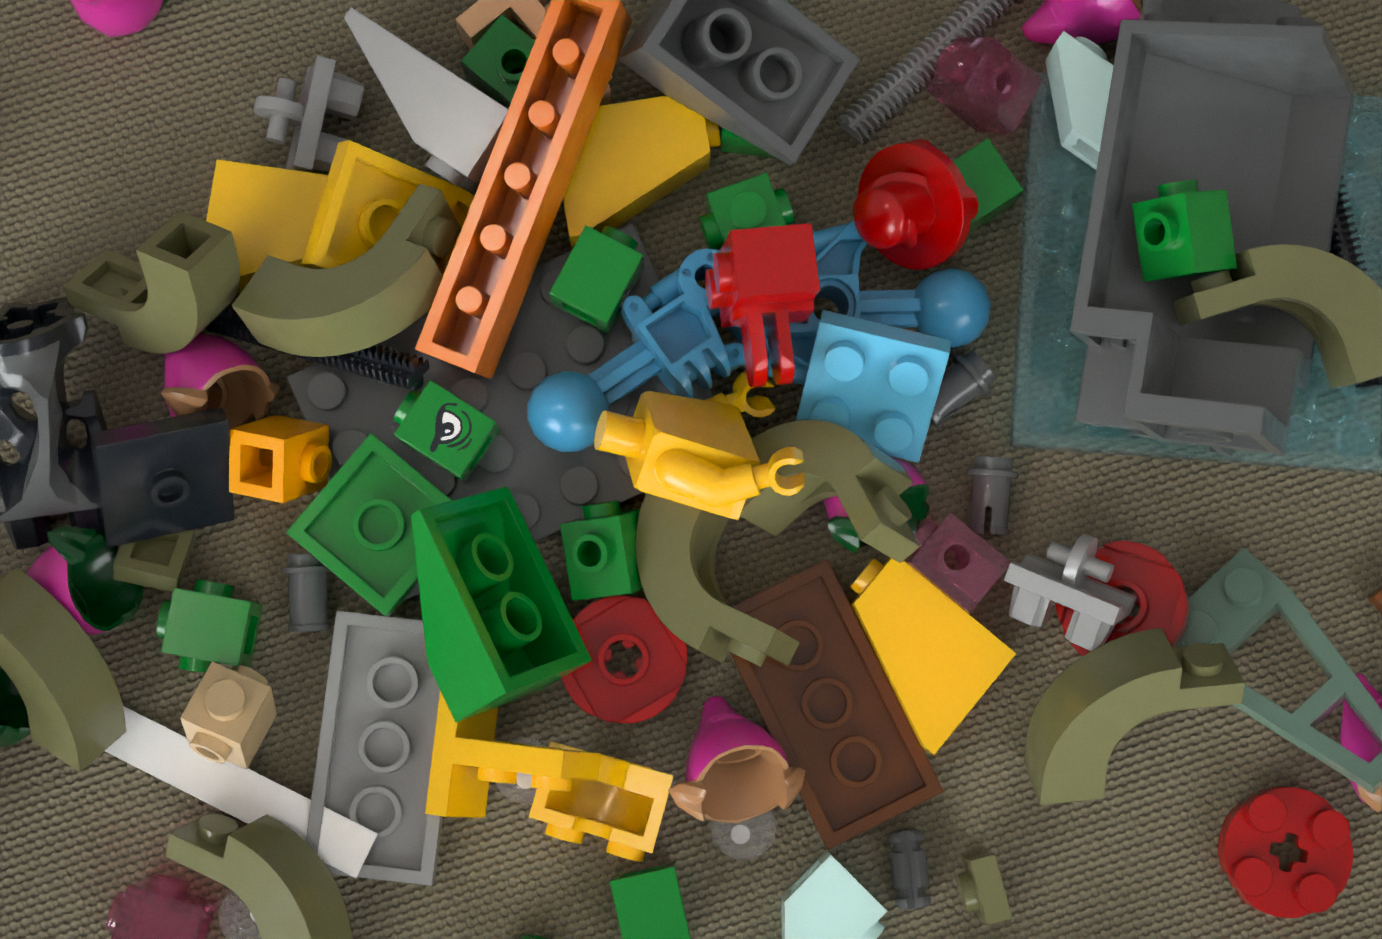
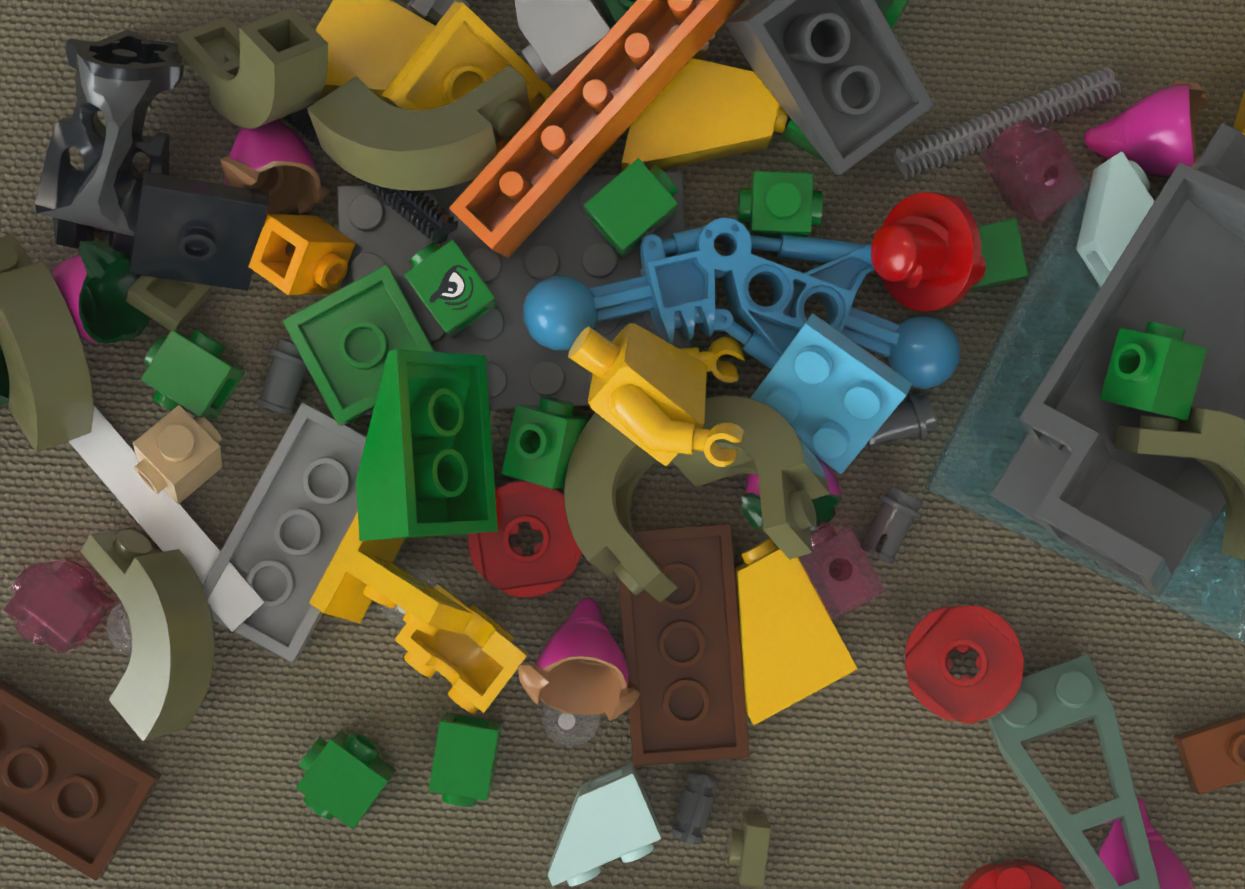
camera: 30 degrees right, 5 degrees up
(765, 281) = (768, 269): red brick -> none
(1042, 583) = (931, 628): light grey hips -> none
(1108, 696) = (922, 738): olive arch -> none

